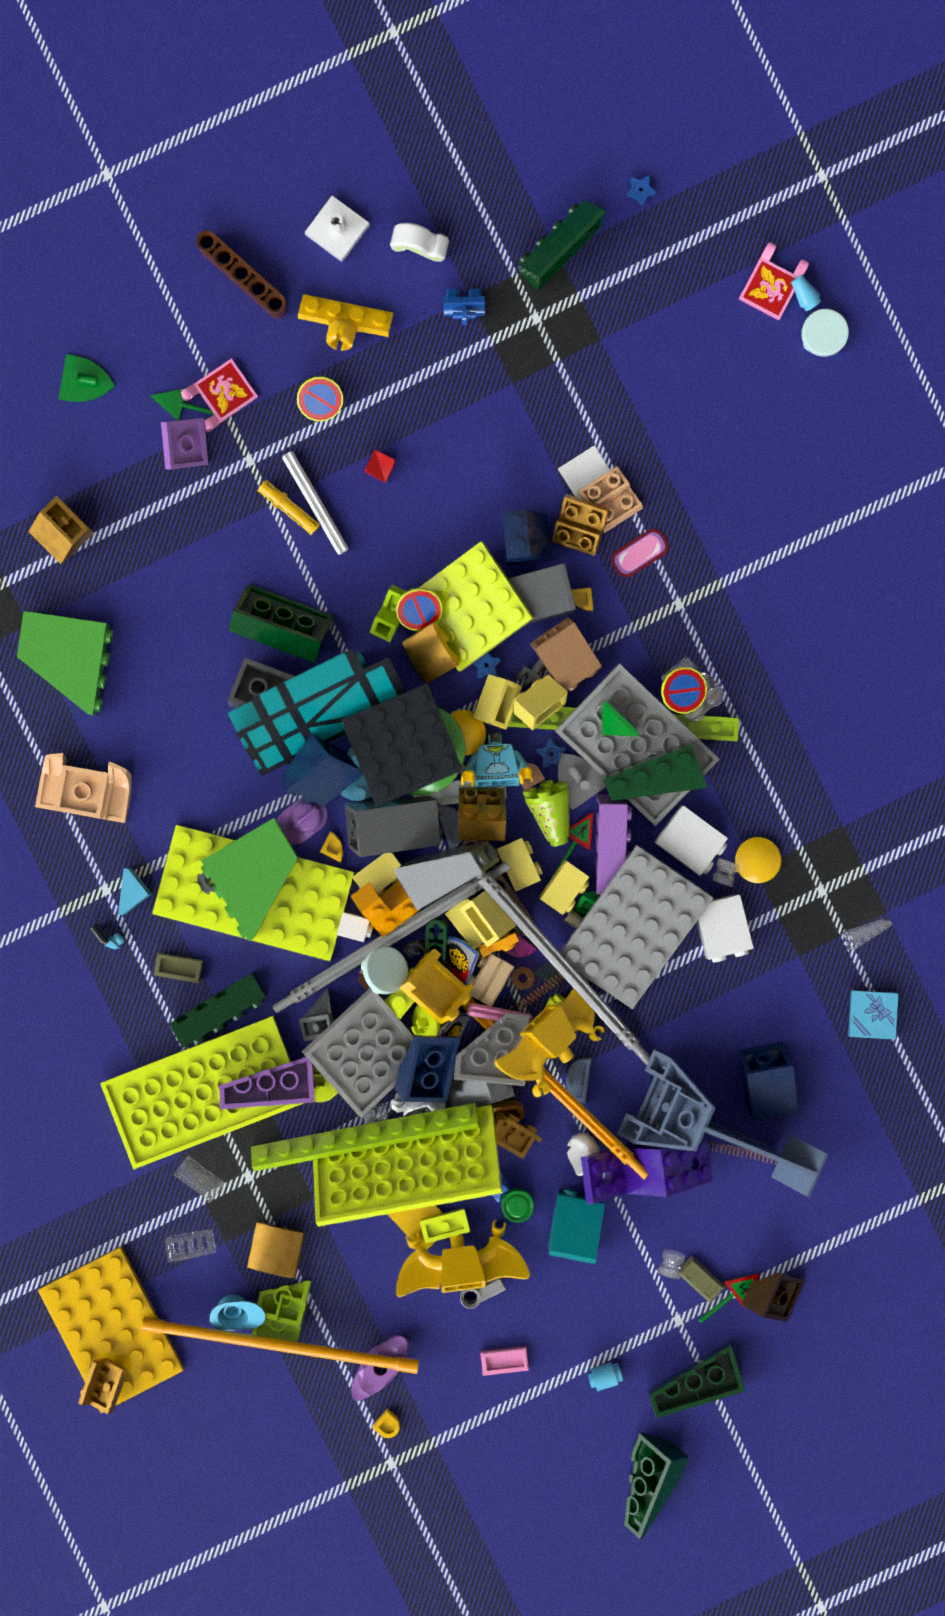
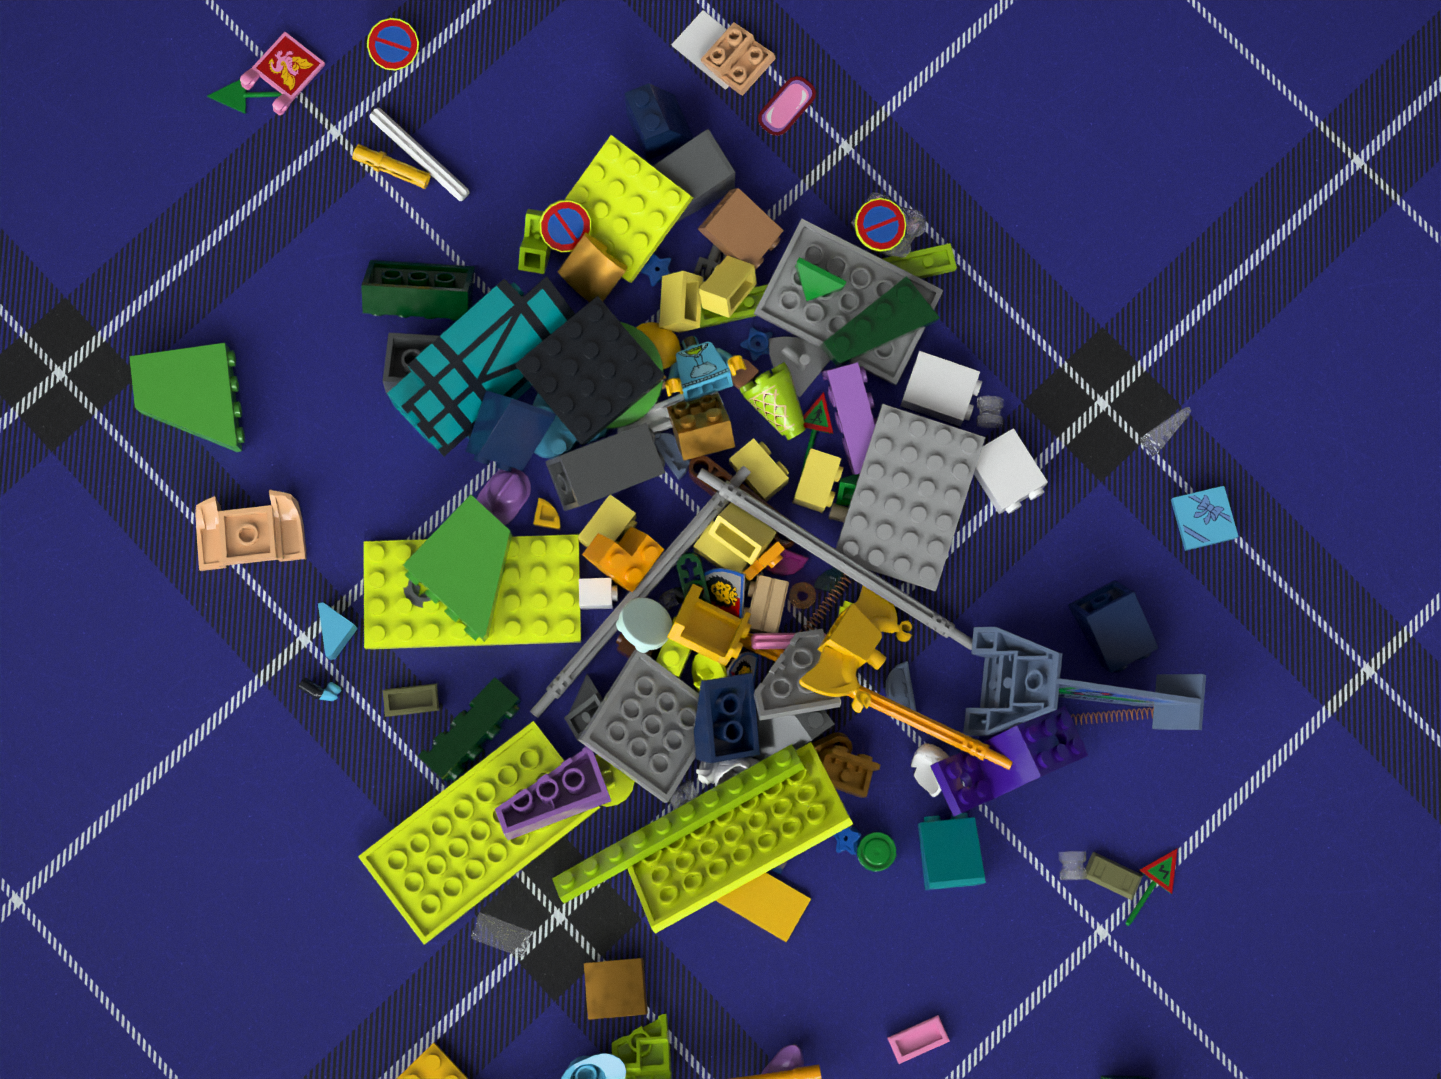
camera: 15 degrees left, 10 degrees down
(60, 530) = (146, 260): pearl gold slope -> none
(83, 380) = (130, 101): green shield -> none
(182, 1255) = (493, 1025): clear slope -> none
(184, 443) = (258, 129): medium lavender tile -> none
(380, 466) = (478, 95): red slope -> none
(440, 872) = (676, 500): slope -> none
(444, 1225) = (801, 900): neon yellow plate -> none
(460, 1265) = (832, 938): yellow torso -> none
(492, 1288) = (869, 960): light grey piece -> none
(580, 524) = (713, 92): pearl gold slope -> none
(583, 598) = (742, 170): yellow tile -> none
(605, 1376) = (1039, 1020): medium azure brick -> none
(699, 1383) = (1154, 989): dark green wedge -> none
(758, 860) = (1022, 389): yellow dish -> none
(774, 1296) = (1201, 865): dark brown slope -> none

